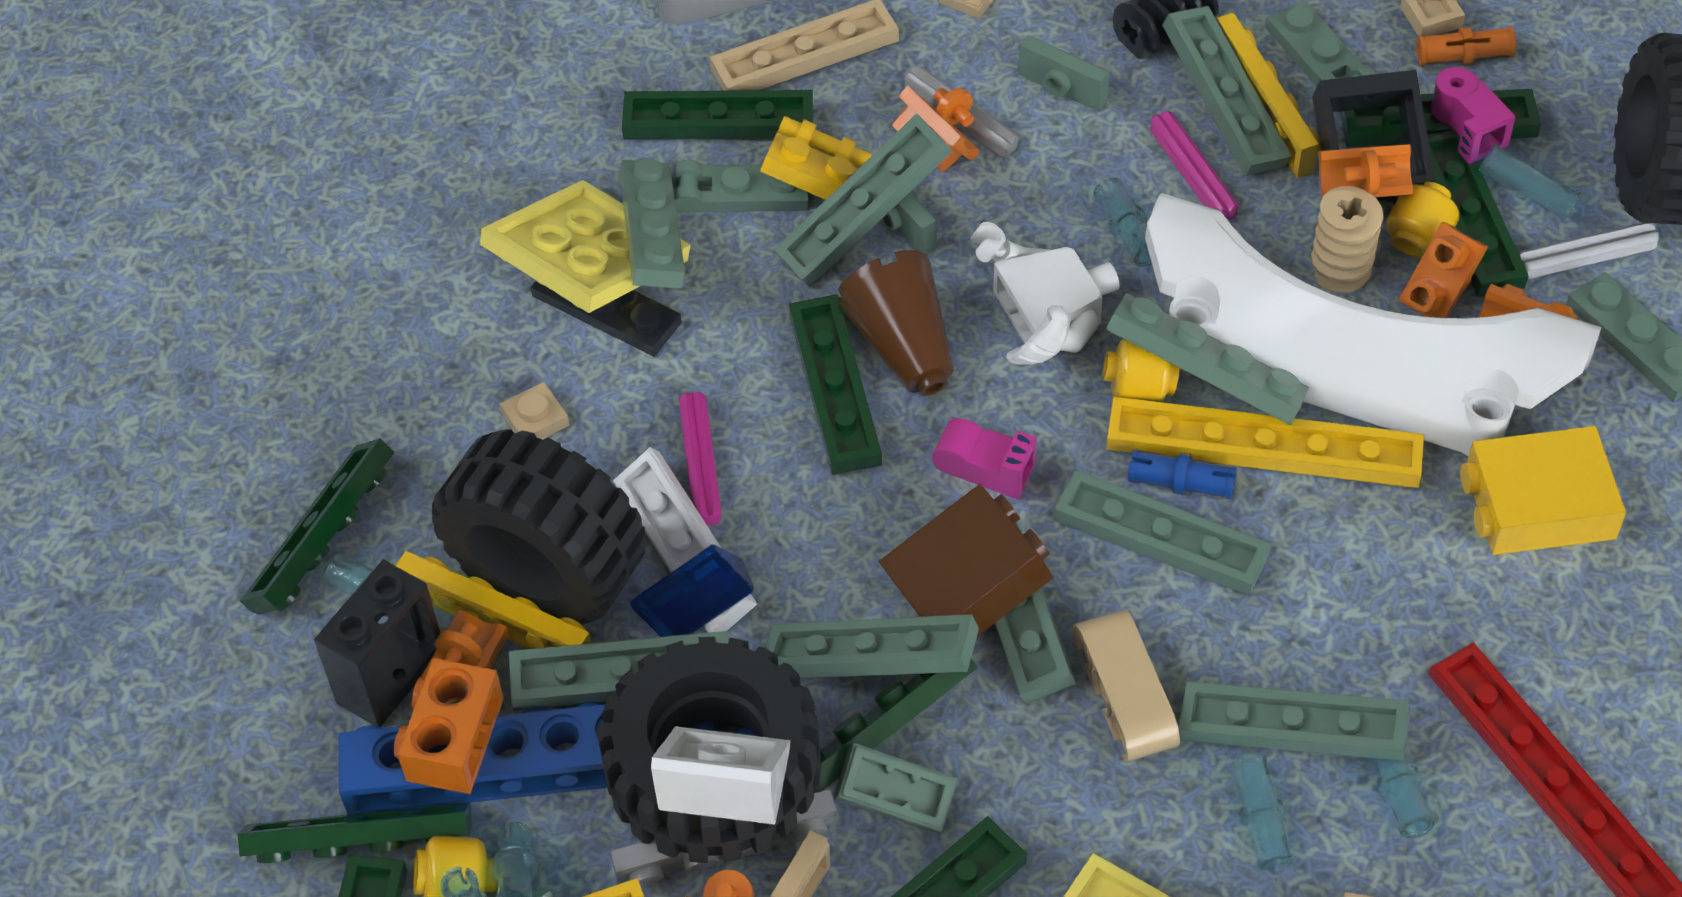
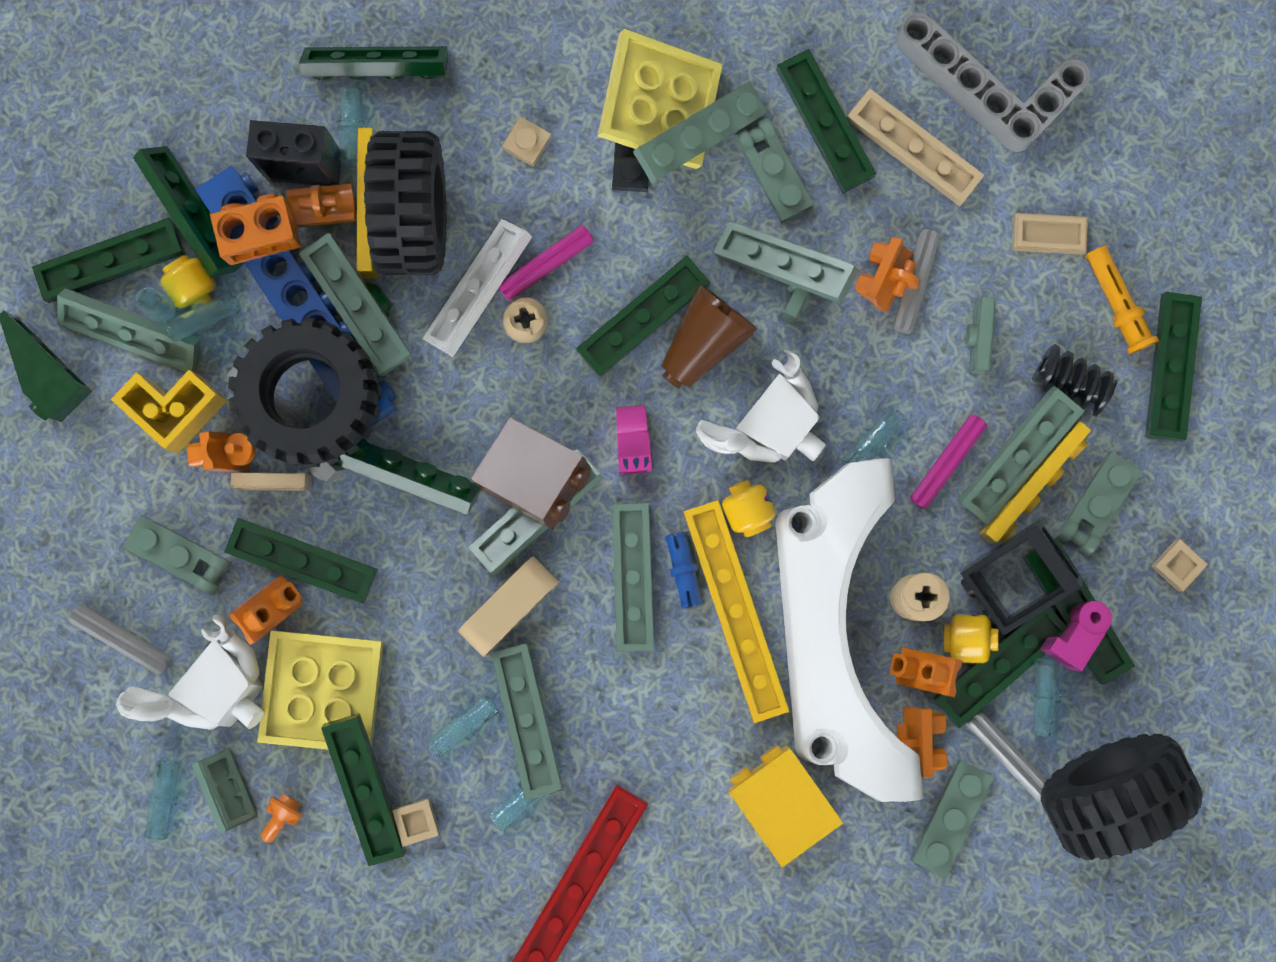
camera: 60 degrees right, 30 degrees up
(694, 593) = (432, 319): clear blue slope -> none
(720, 774) = (261, 416): white slope -> none
(774, 509) = (513, 314): none -> tan piece
(812, 158) = (803, 209): yellow plate -> none
(876, 646) = (444, 445): sand green plate -> none
(895, 788) = (364, 506): sand green plate -> none
(1211, 360) = (768, 549): sand green plate -> none
(1375, 169) = (971, 590): orange hips -> none
(1466, 46) = (1170, 621): orange pin -> none

